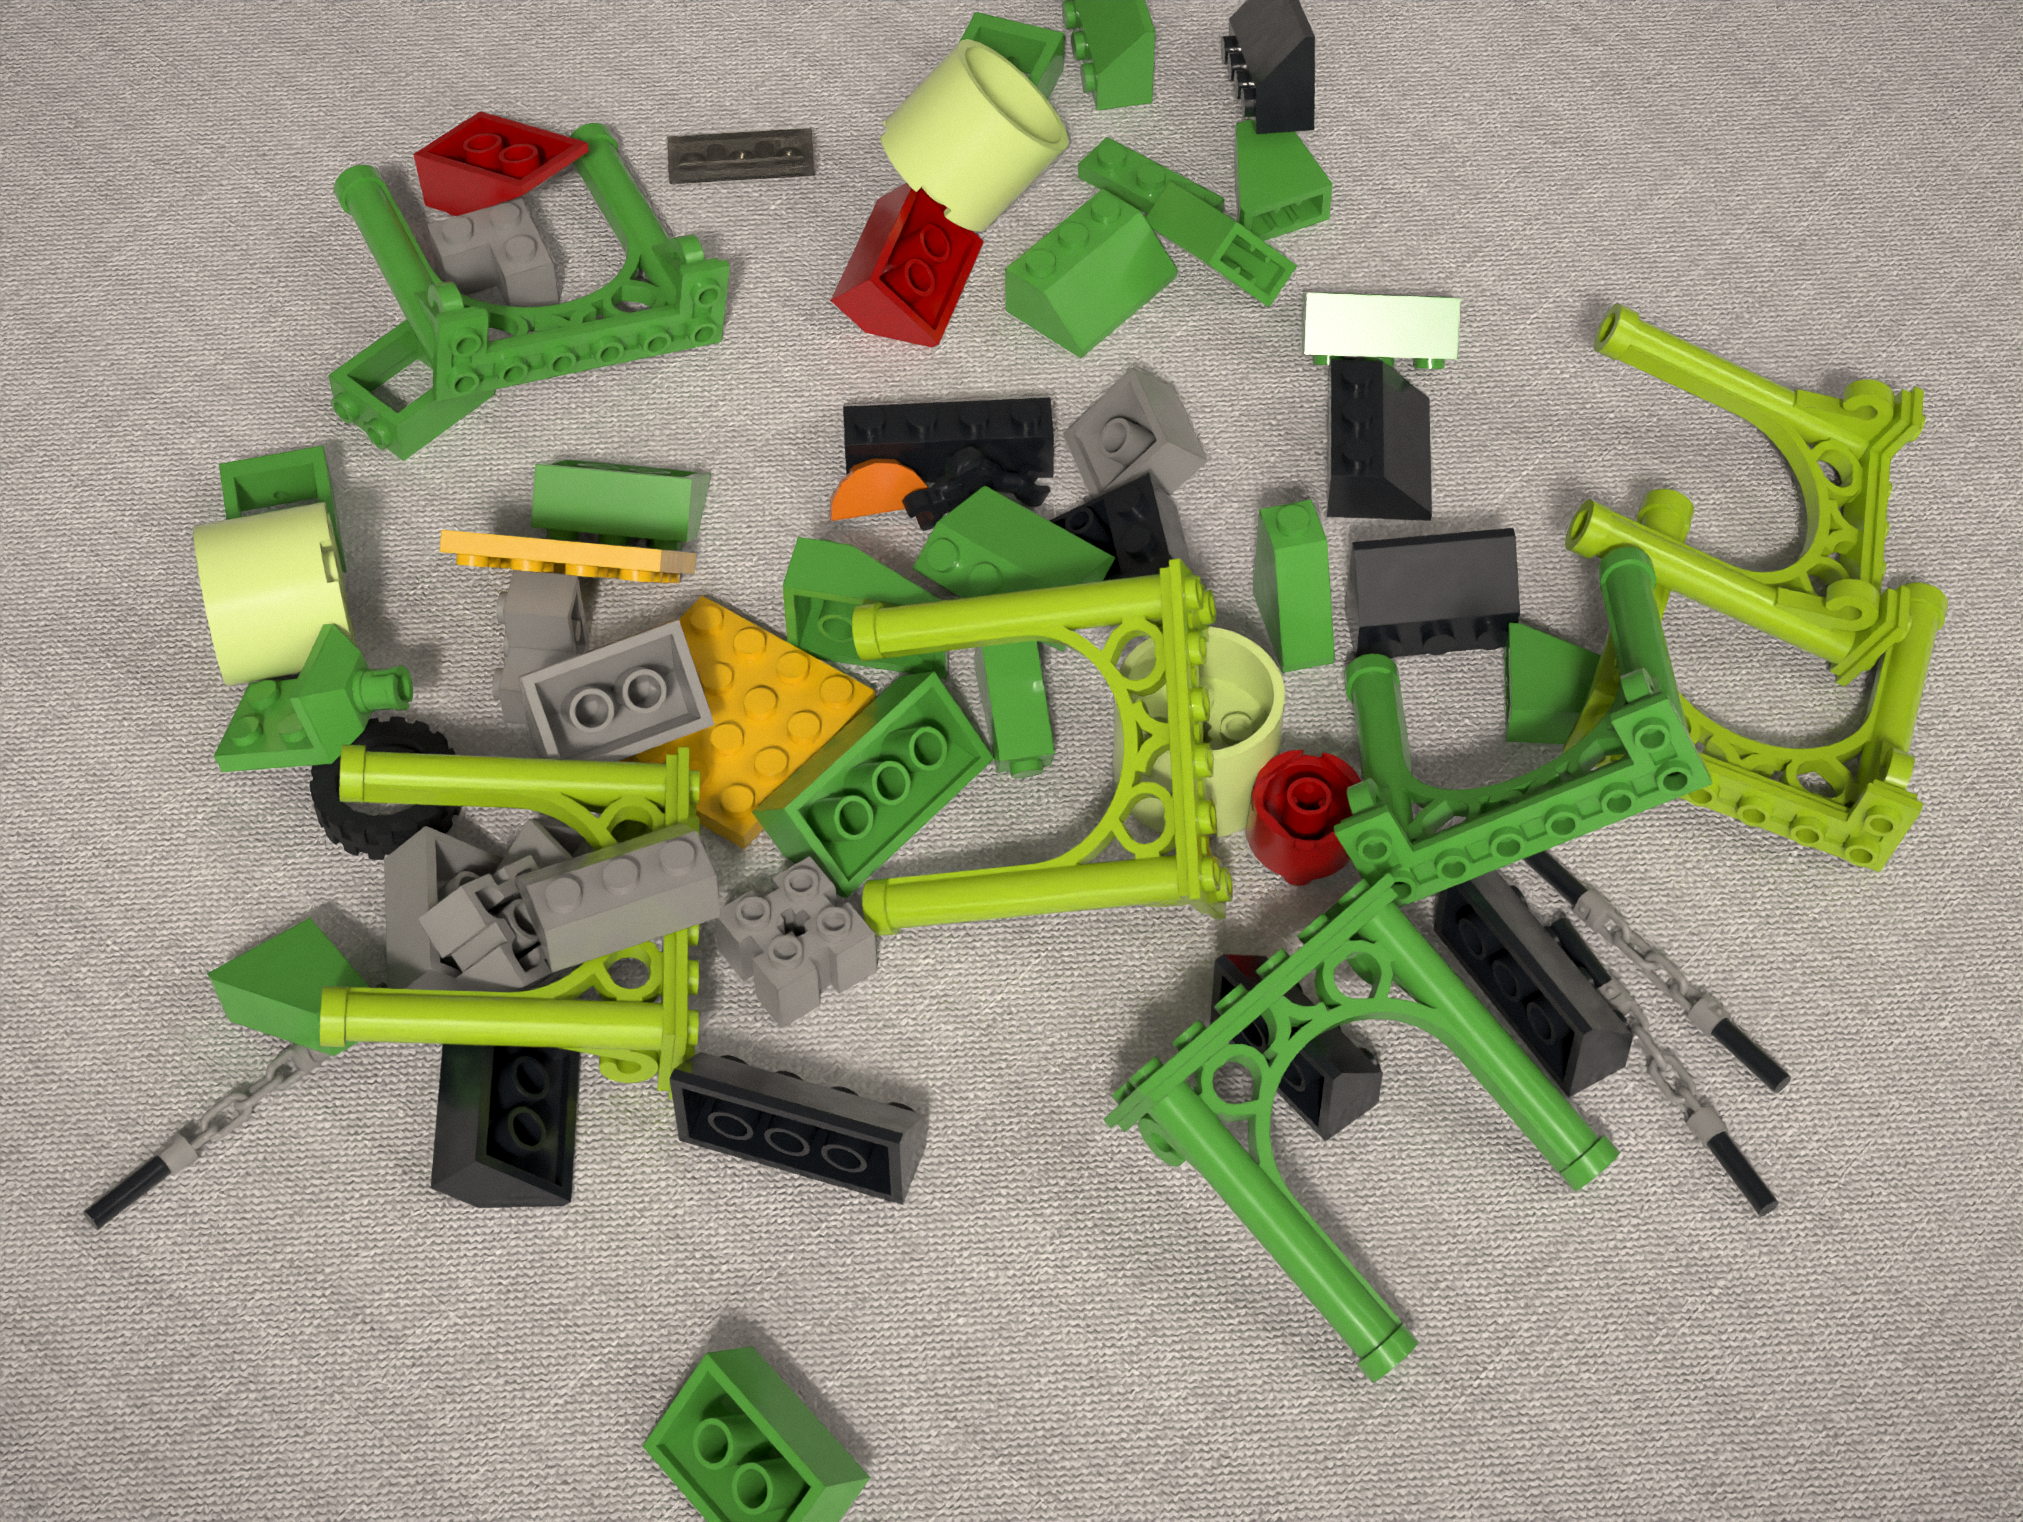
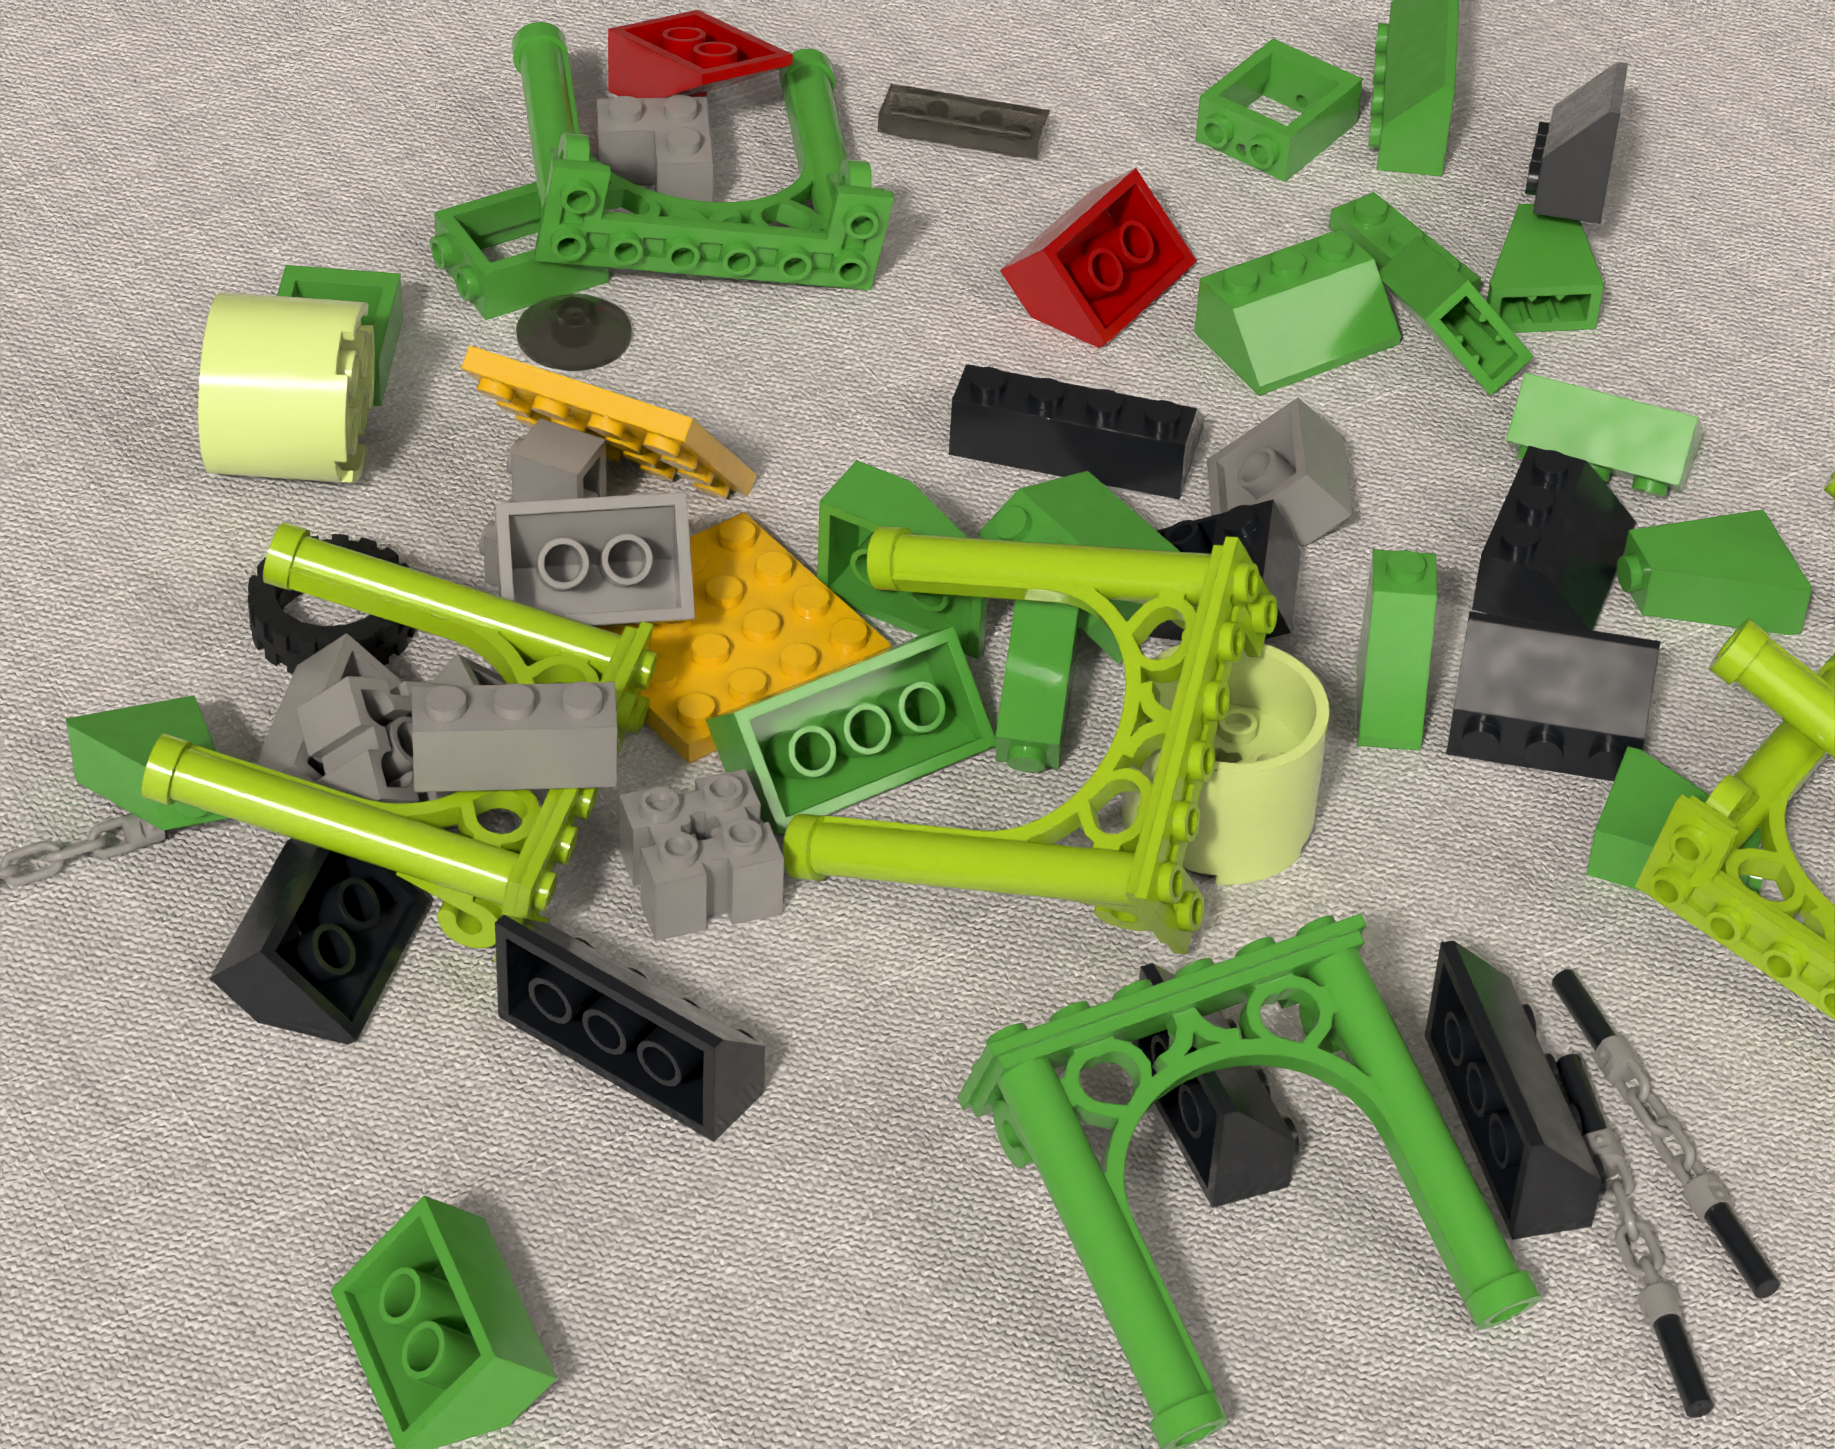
camera: 15 degrees right, 10 degrees down
(312, 715) = (298, 484): bright green plate -> none
(485, 453) = (573, 332): none -> clear smoke dish
(618, 502) = (736, 411): bright green slope -> none
(874, 489) = (978, 458): orange tile -> none
(965, 475) = (1079, 452): black piece -> none
(974, 135) = (1213, 139): yellowish green brick -> none
(1295, 815) = (1314, 866): red brick -> none
(1515, 433) = (1716, 573): none -> bright green slope
(1543, 805) = (1440, 911): bright green arch -> none

